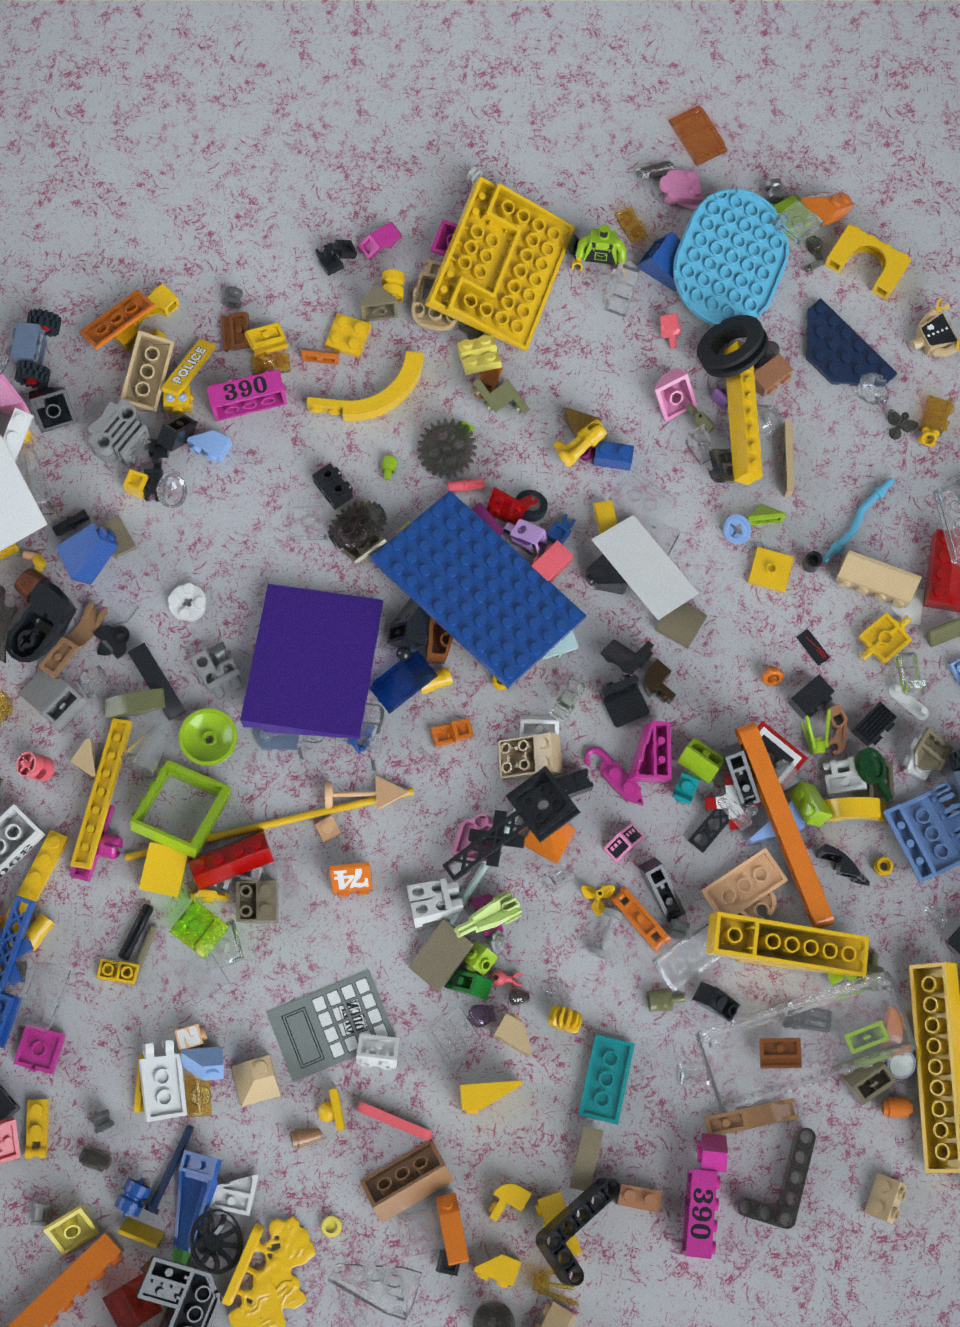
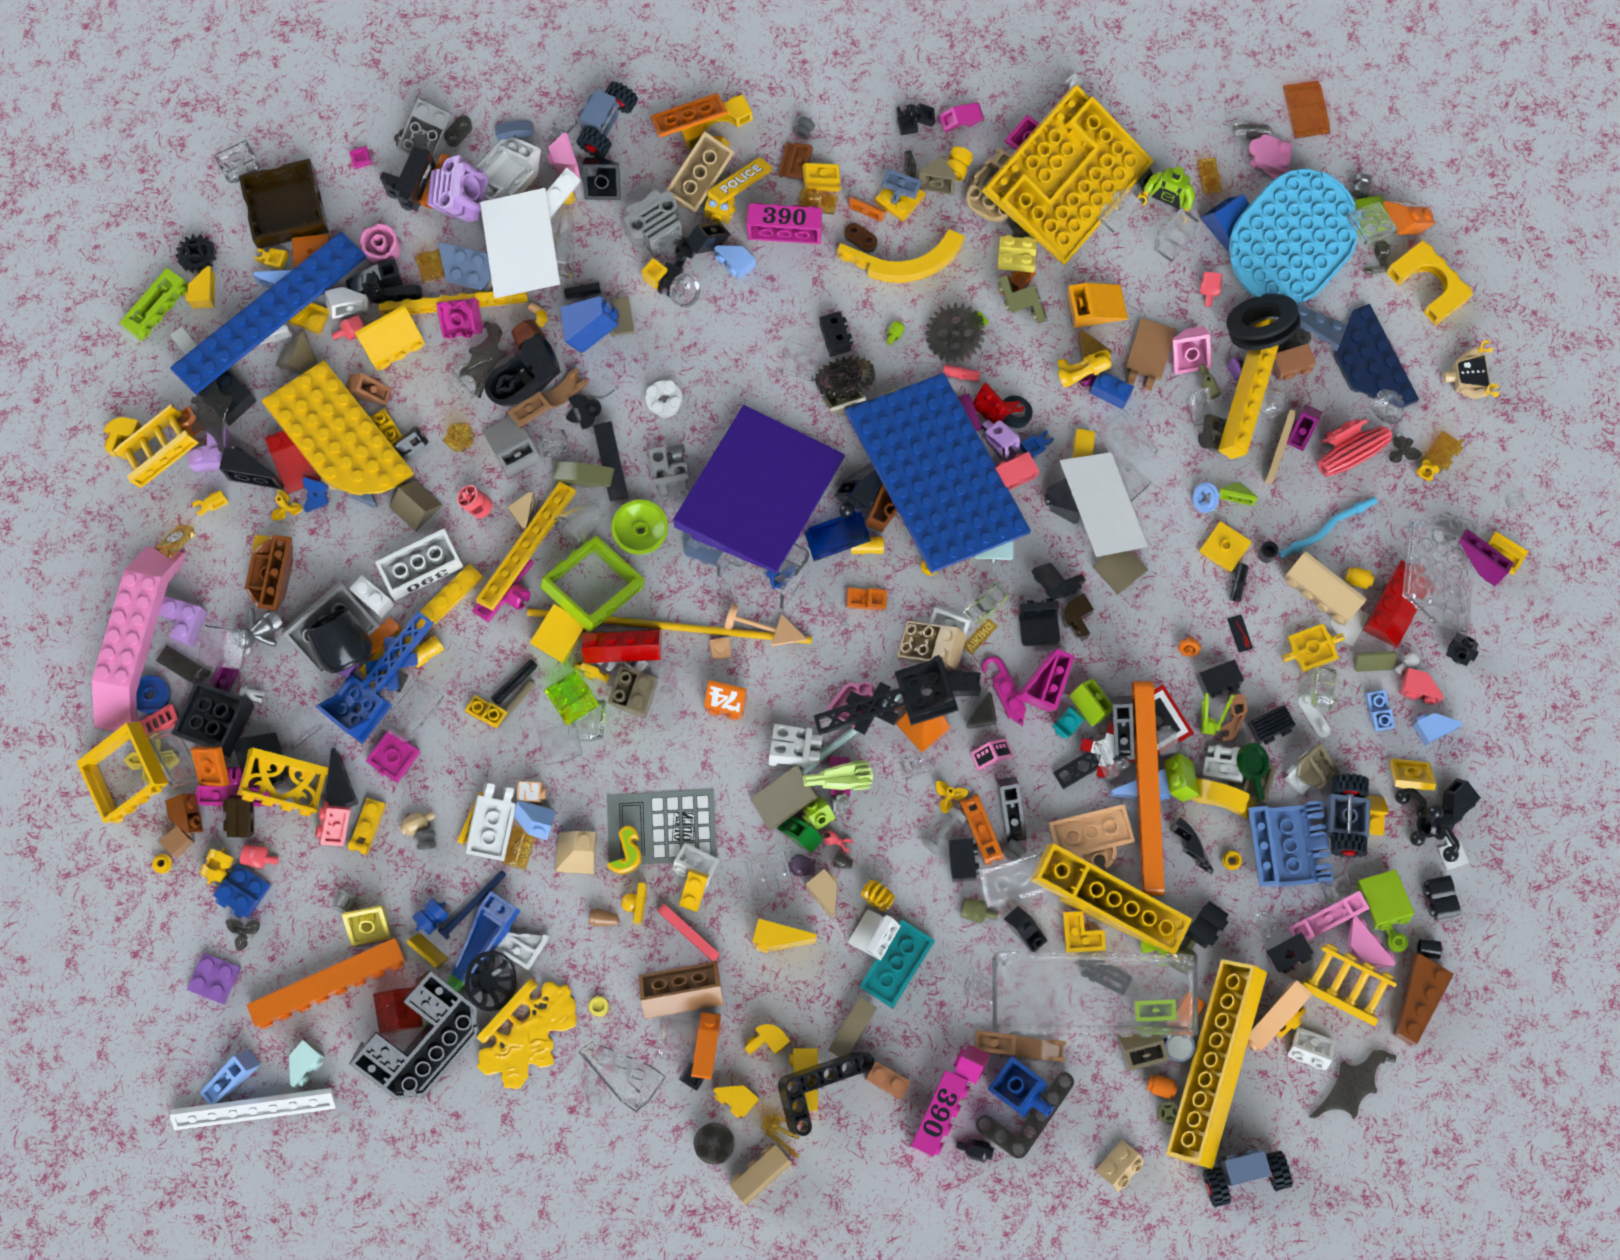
camera: 25 degrees right, 0 degrees up
(85, 1108) = (415, 823): none -> tan plant
(95, 1158) = (408, 870): clear smoke brick -> none
(311, 1061) = (632, 853): none -> yellow animal
(323, 386) = (858, 239): none -> reddish brown plate
(345, 323) = (900, 185): none -> sand blue plate
(348, 305) = (909, 164): none -> clear smoke tile
(385, 1077) = (693, 890): none -> yellow plate
(559, 282) = (1114, 218): none -> clear brick
(569, 379) = (1095, 304): none -> light orange slope
(572, 732) = (980, 636): none -> clear yellow sticker
(574, 1058) = (874, 934): none -> white bracket
(604, 806) = (984, 714): none -> clear smoke slope
(633, 955) = (962, 860): none -> black brick
(635, 408) = (1149, 352): none -> medium nougat tile
(745, 1233) = (976, 1149): none -> black plant
(768, 1160) = (1020, 1089): none -> blue brick
(769, 993) = (1077, 938): none -> yellow plate
(780, 1052) = (1068, 996): dark orange plate -> none
(788, 333) = (1323, 326): none -> sand blue wing
(796, 599) = (1239, 582): none -> black axle
(803, 432) = (1304, 427): none -> magenta slope
(853, 436) = (1352, 446): none -> coral plate
(884, 936) = (1207, 924): none -> black brick
(904, 557) = (1359, 577): none -> yellow brick
(915, 1131) = (1170, 1110): none -> olive wheel

